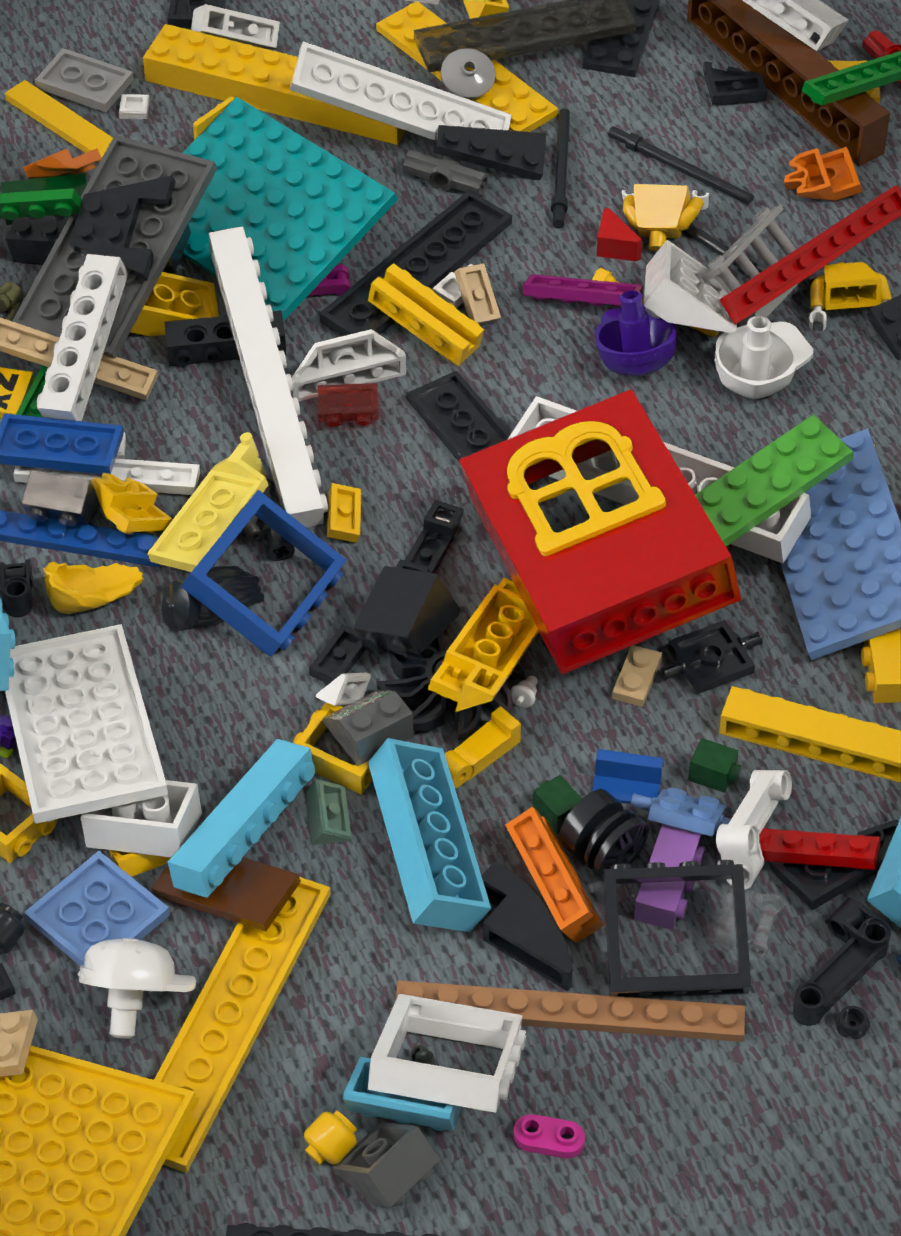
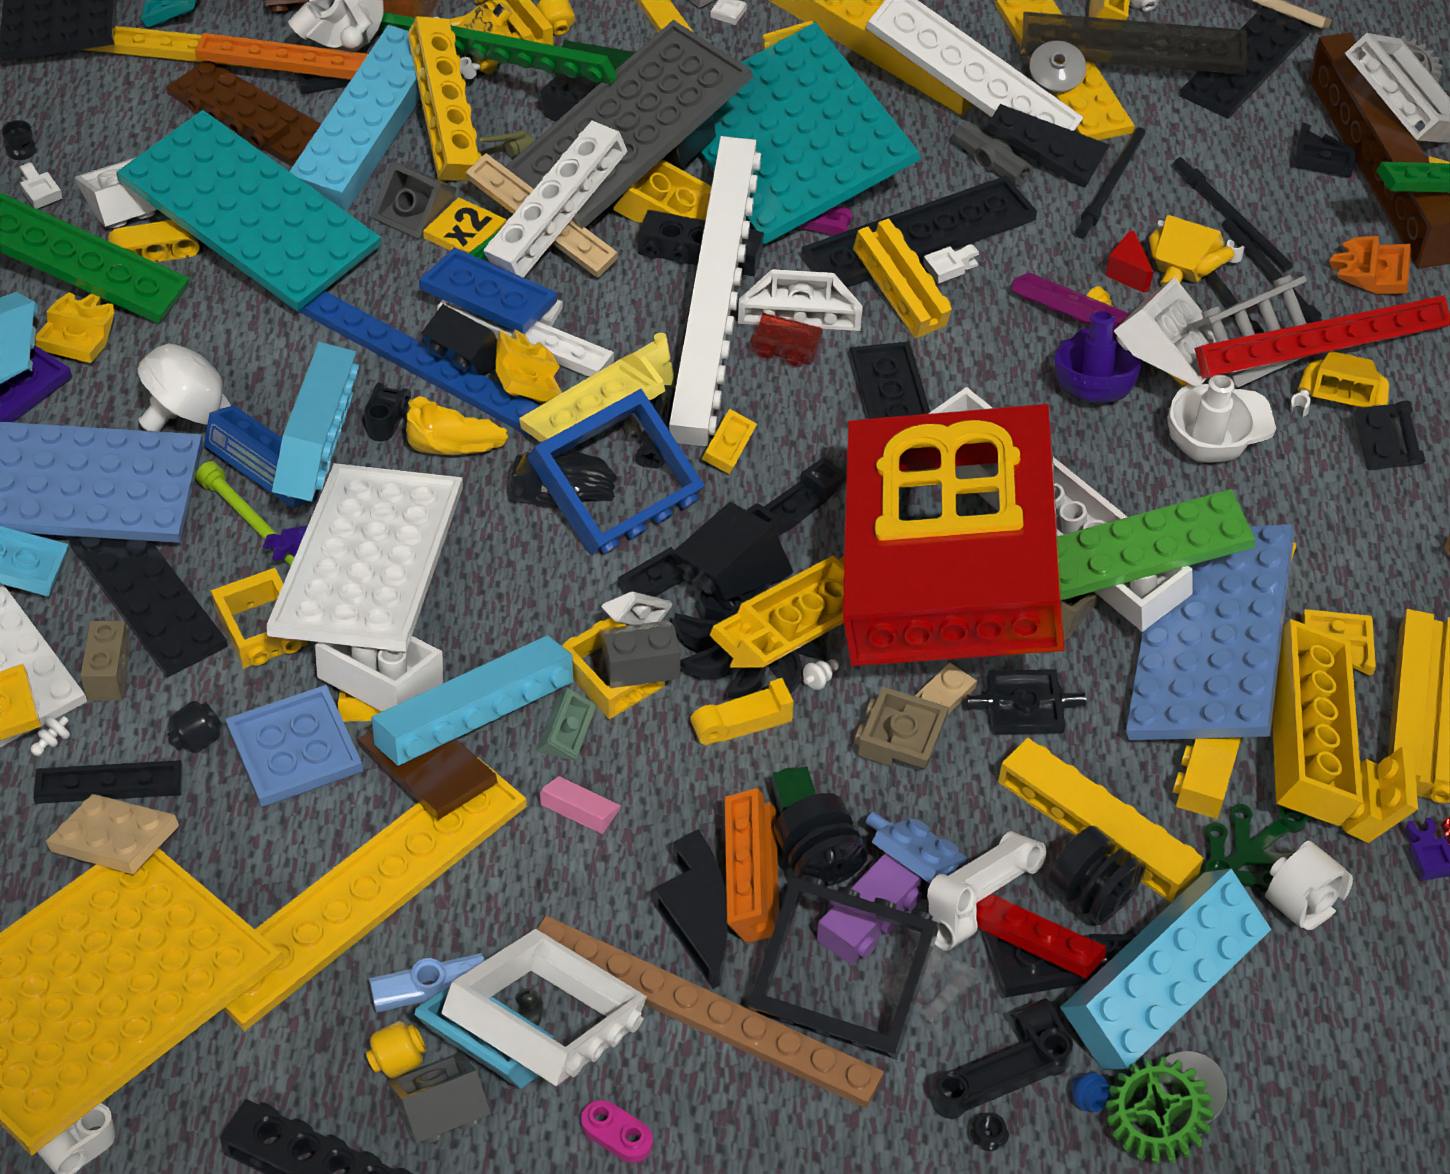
camera: 20 degrees right, 0 degrees up
(61, 164) = (619, 37): orange plate -> none
(109, 219) = (633, 94): black wing -> none
(128, 969) = (282, 810): white piece -> none
(313, 1084) = (407, 986): none -> light blue piece
(370, 877) = (579, 804): none -> bright pink slope
(428, 836) = (643, 782): medium azure brick -> none
(477, 294) = (963, 275): tan plate -> none
(620, 715) = (900, 728): none -> dark tan plate
(627, 774) = (879, 790): blue panel -> none
(714, 765) = (973, 812): dark green brick -> none
(732, 204) = (1310, 312): none -> black bar
(843, 781) = (1096, 874): none -> black wheel

